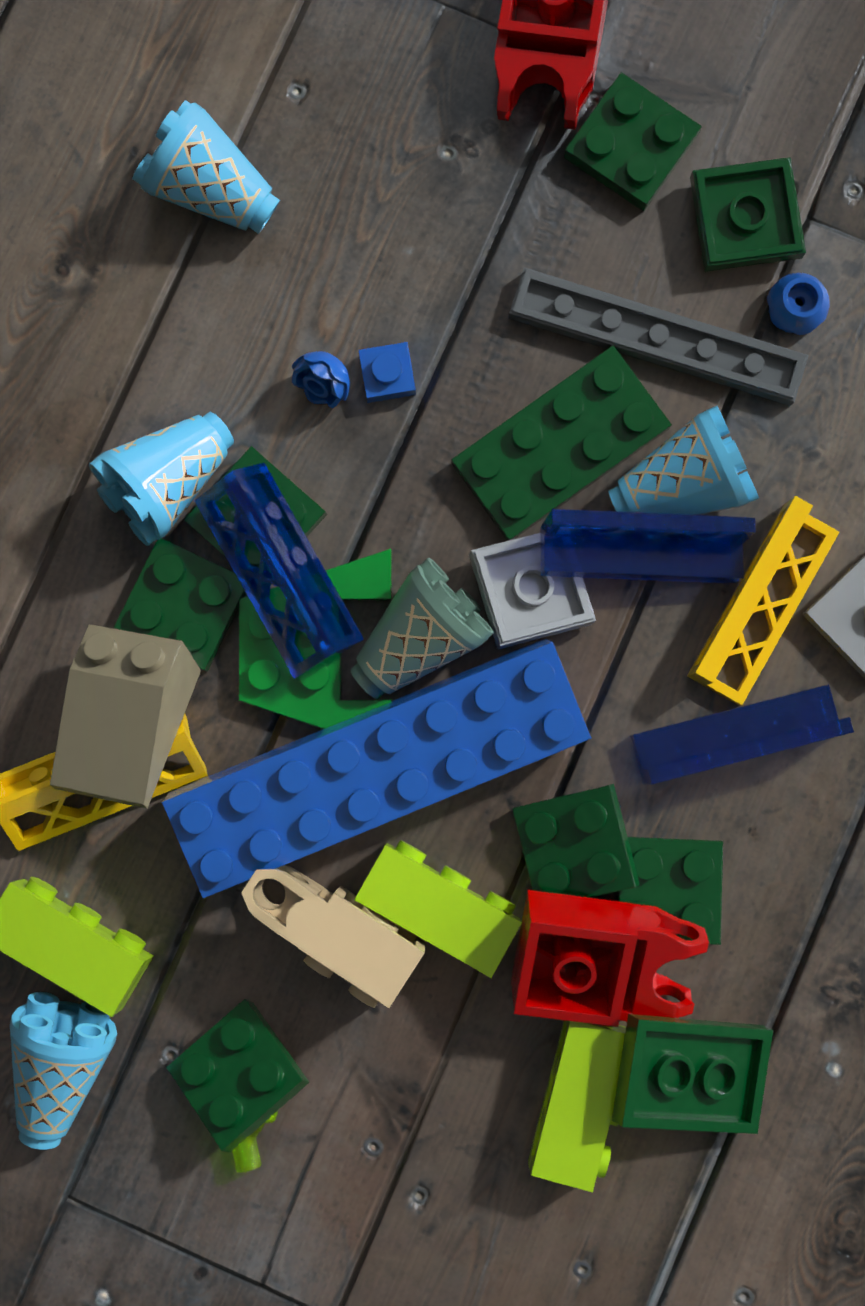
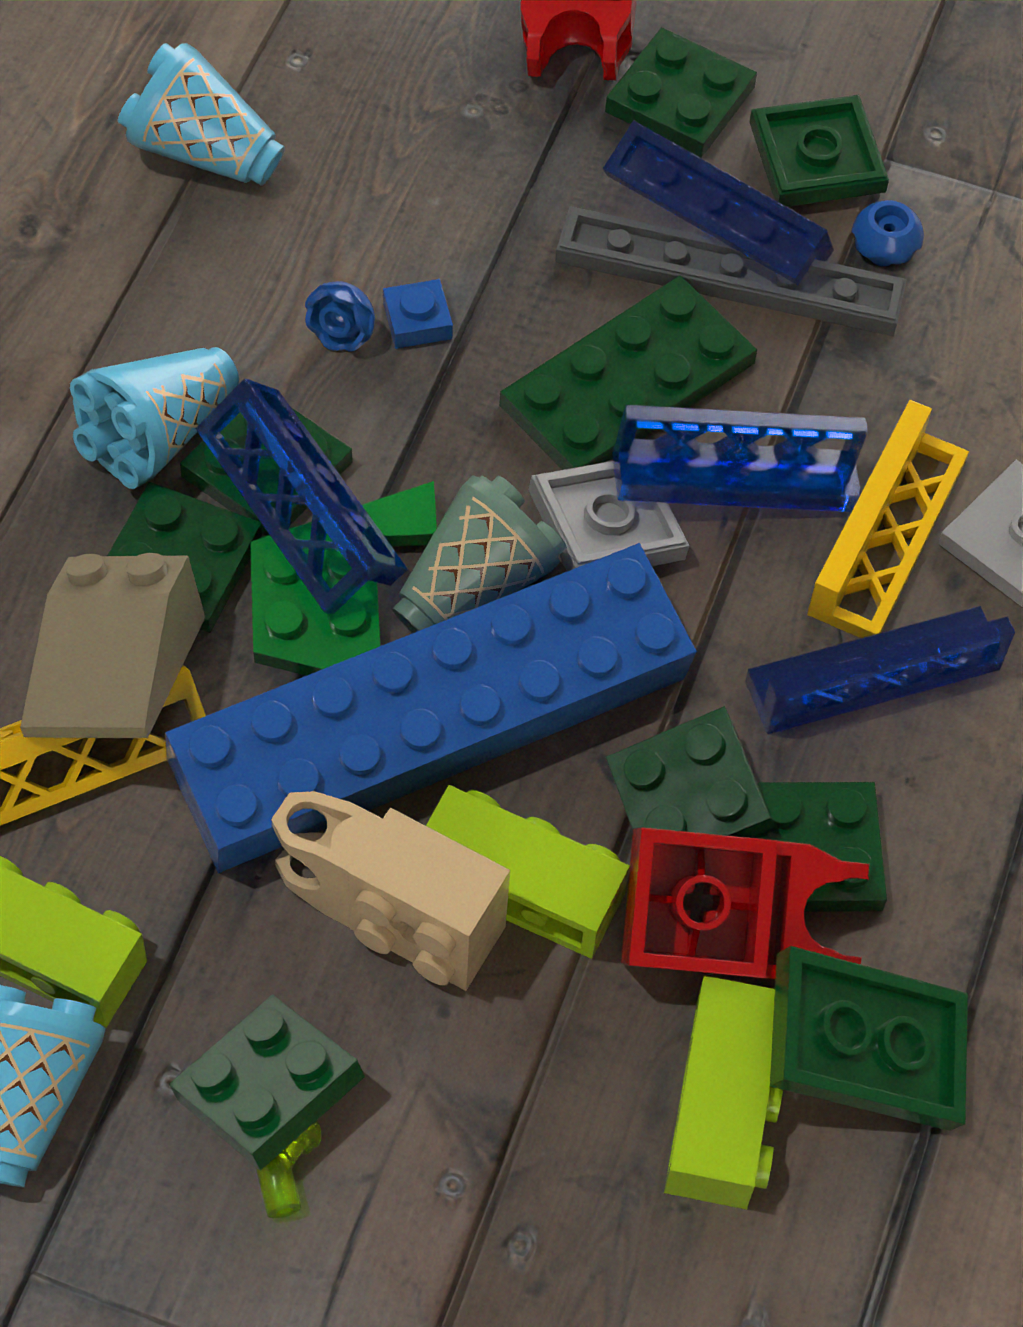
camera: 10 degrees left, 25 degrees down
(651, 276) = (718, 203): none -> clear blue fence
(688, 473) = (790, 374): medium azure cone -> none

